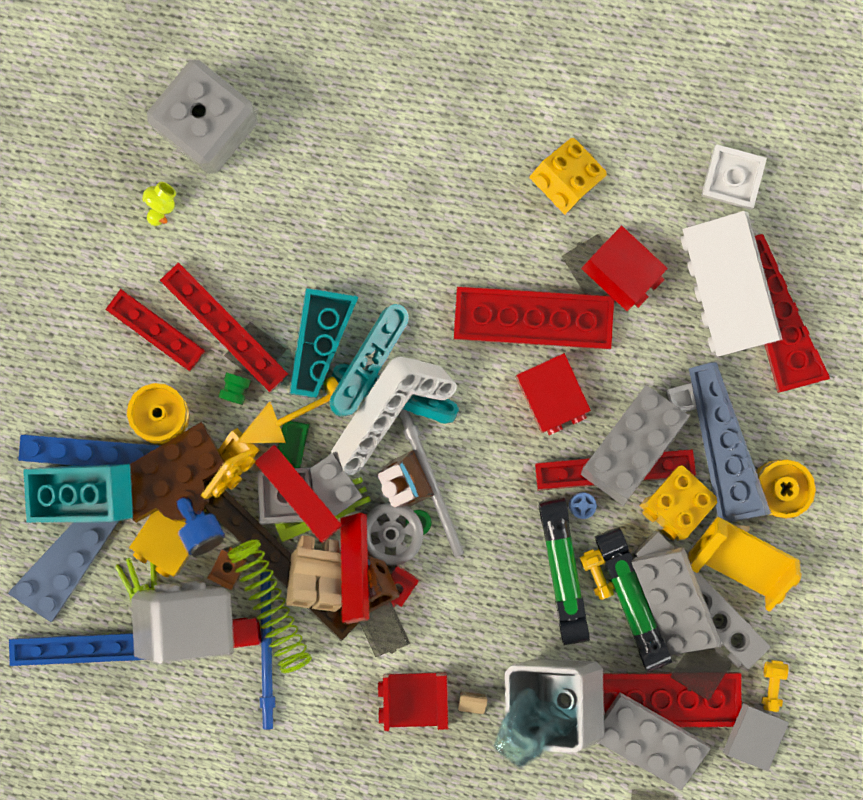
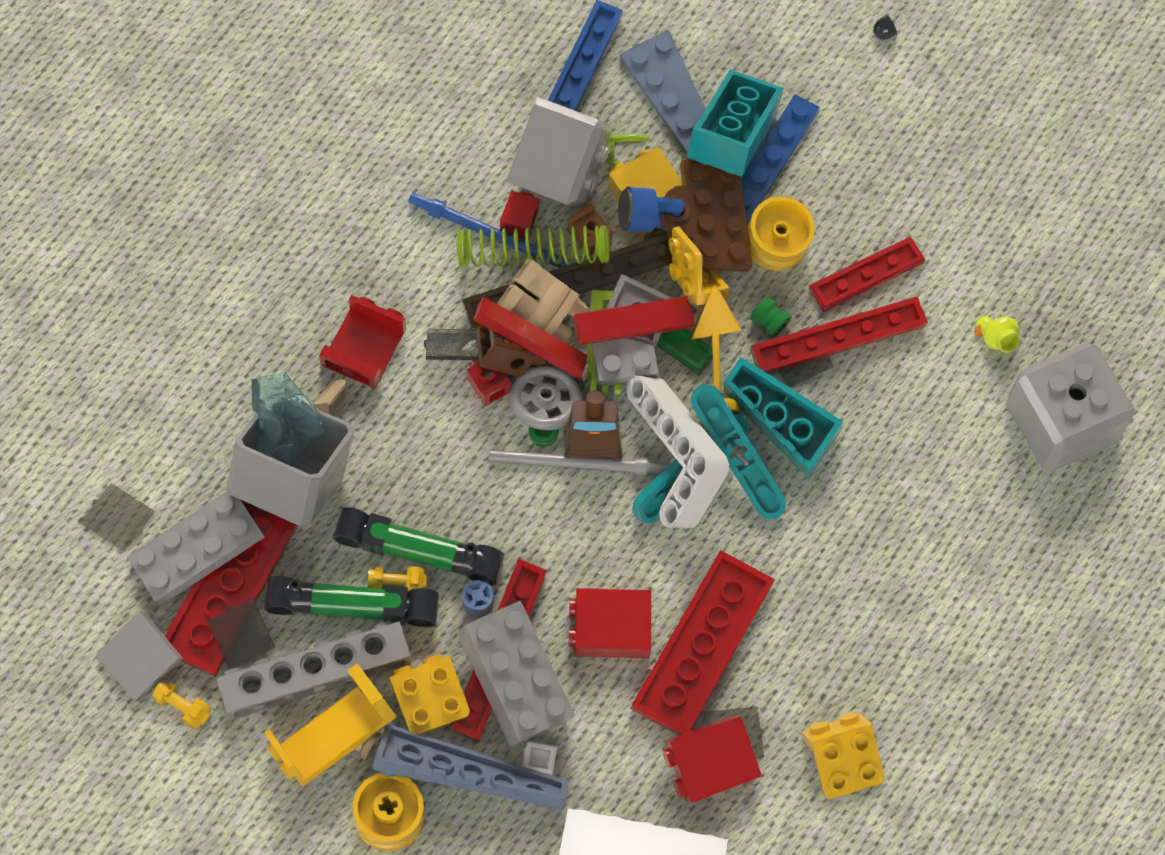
camera: 110 degrees right, 20 degrees down
(676, 601) = (327, 636): light grey plate -> none

